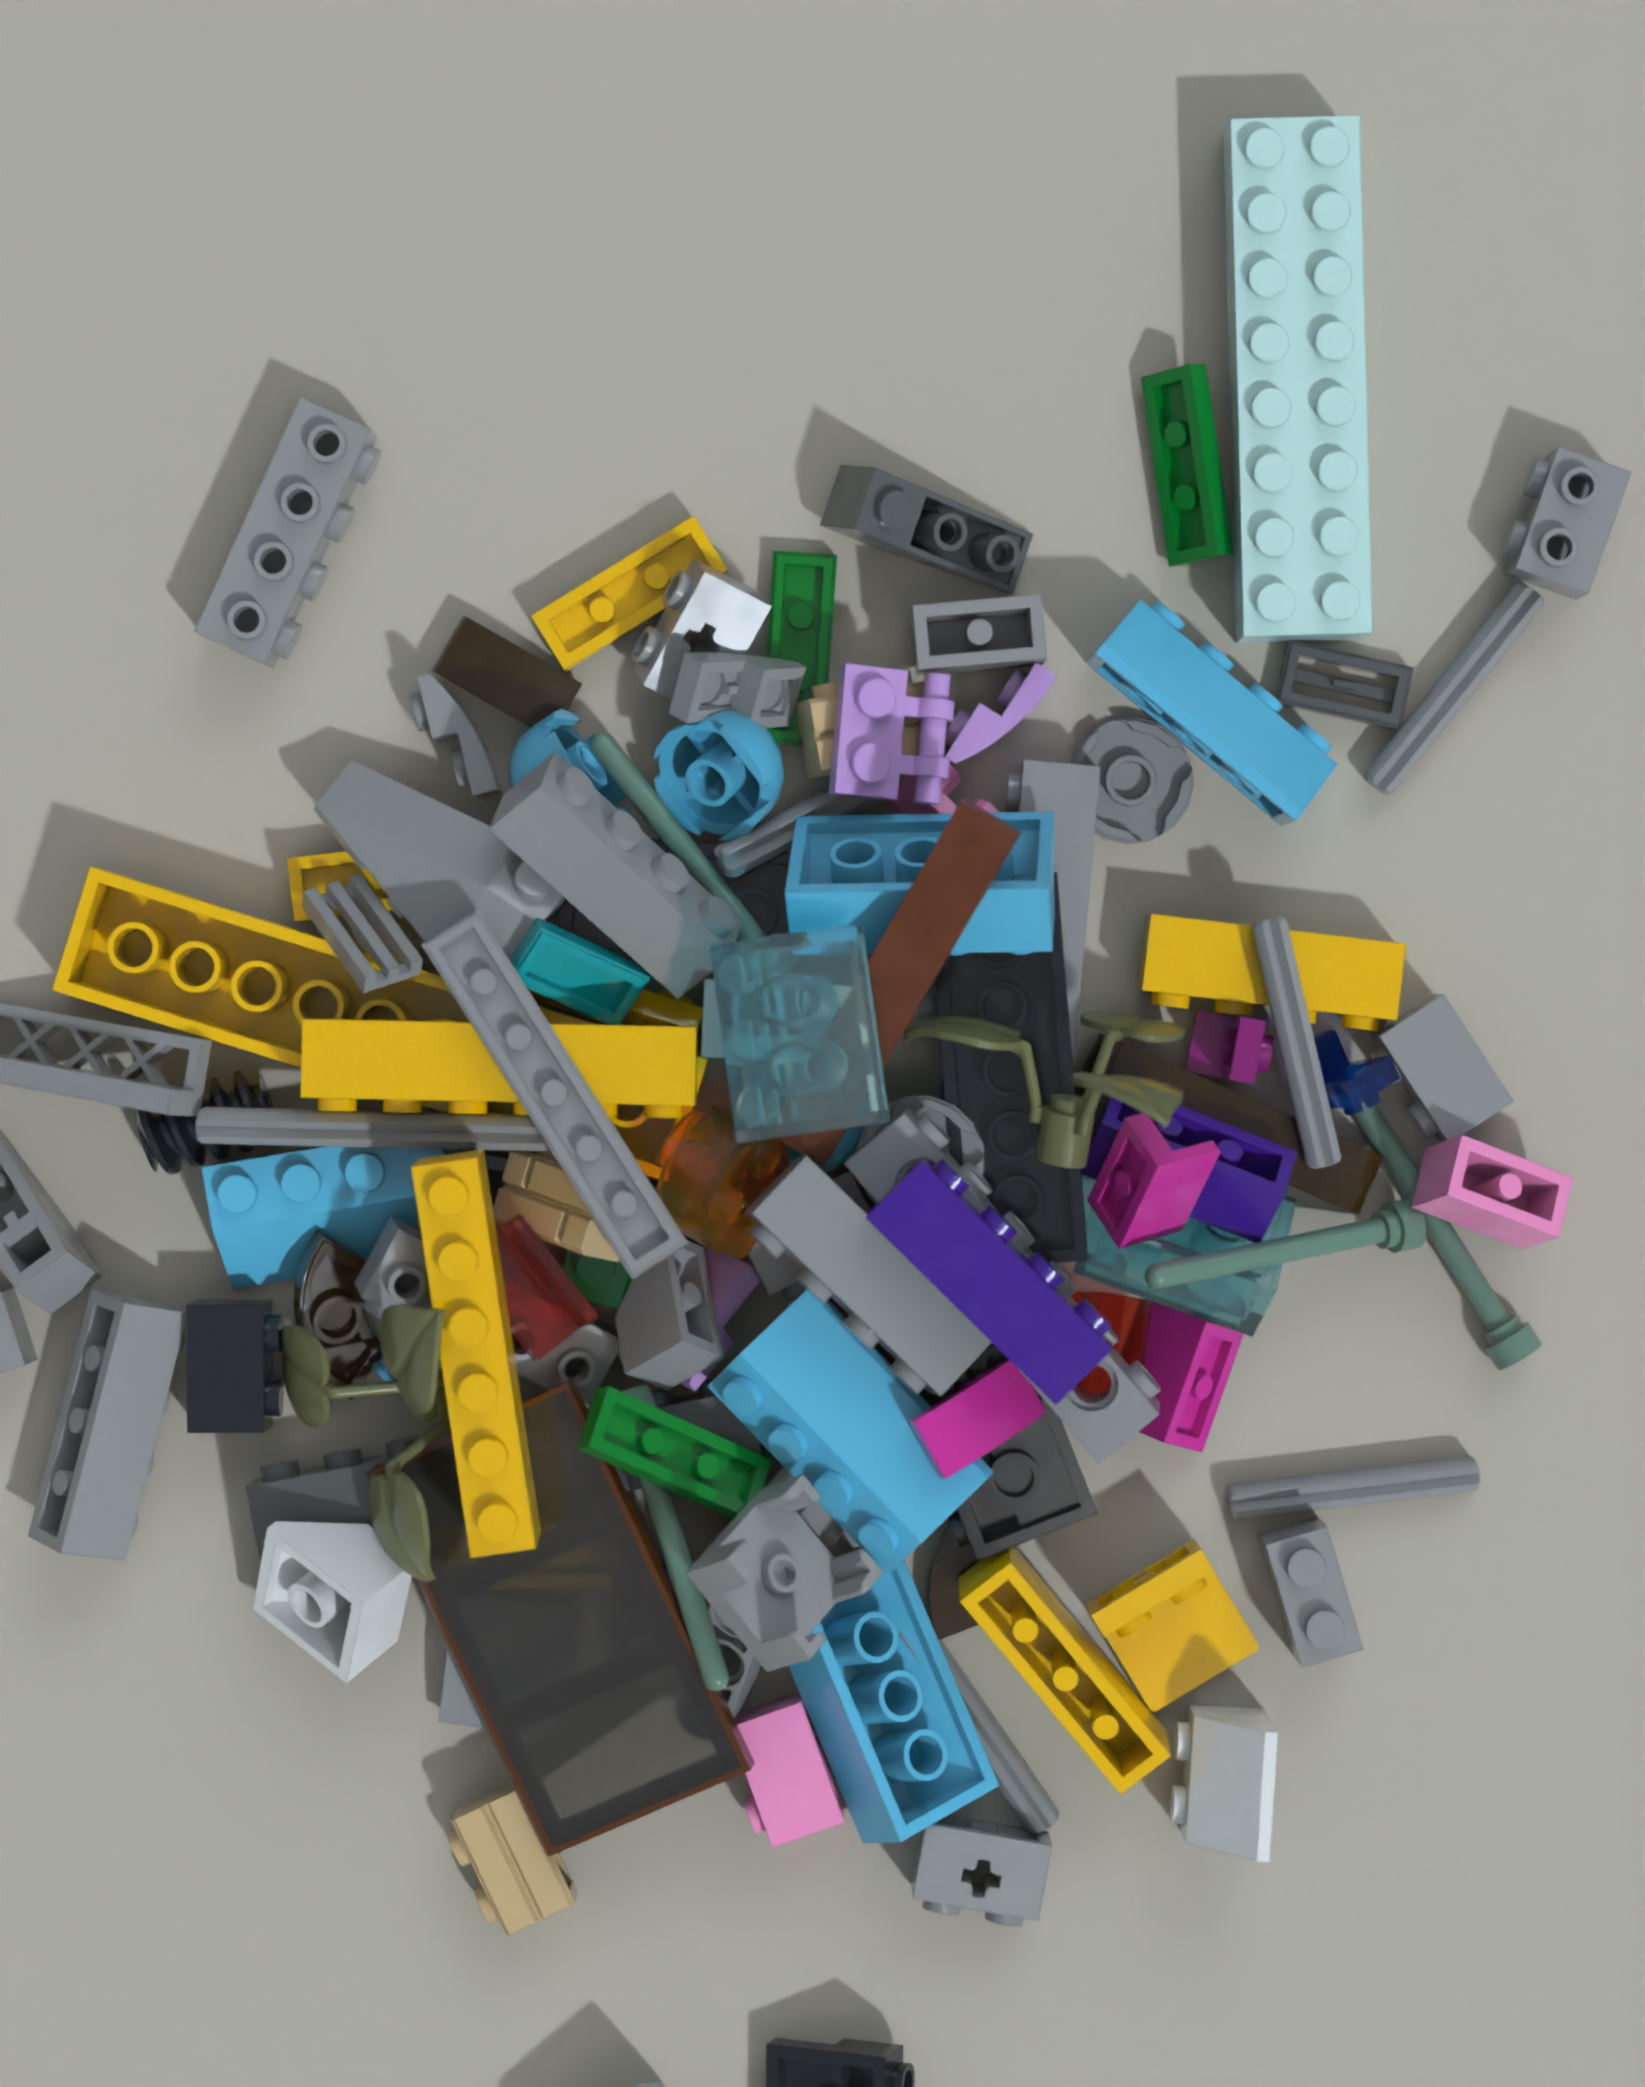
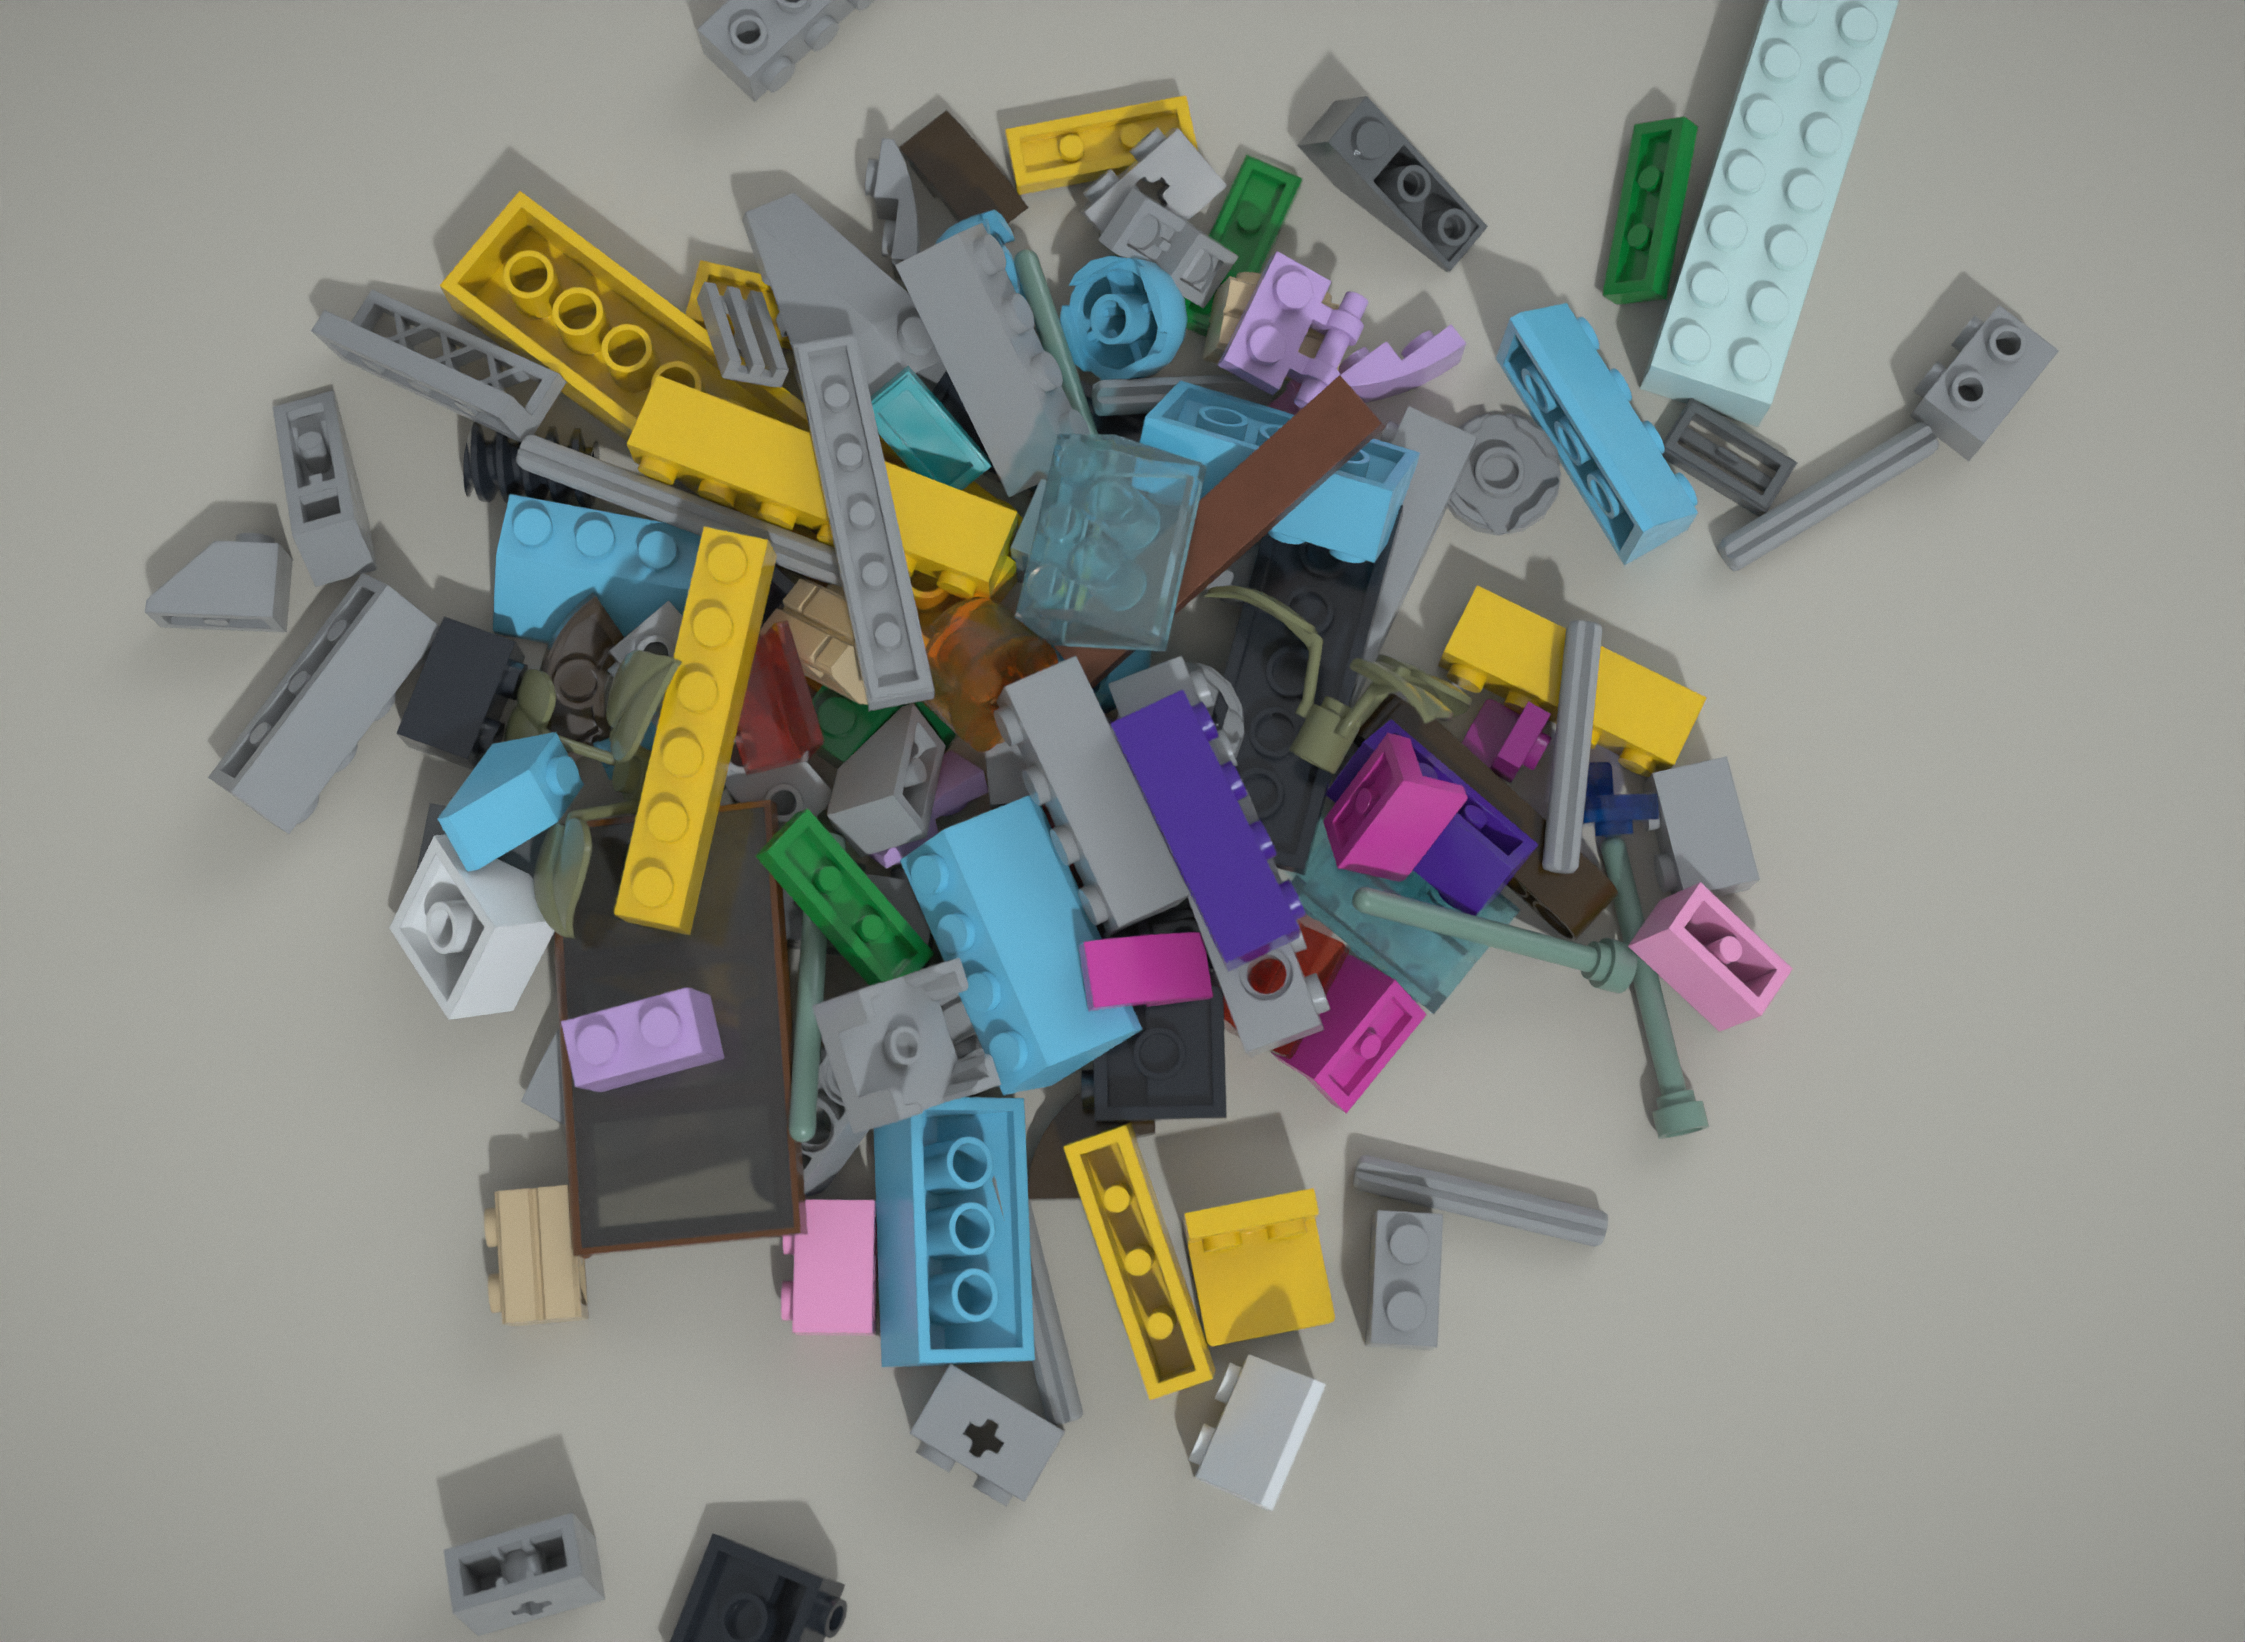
camera: 20 degrees right, 10 degrees down
(323, 1467) = (510, 798): none -> medium azure slope
(539, 1653) = (642, 1040): none -> lavender brick
(978, 634) = (1408, 282): light grey brick -> none

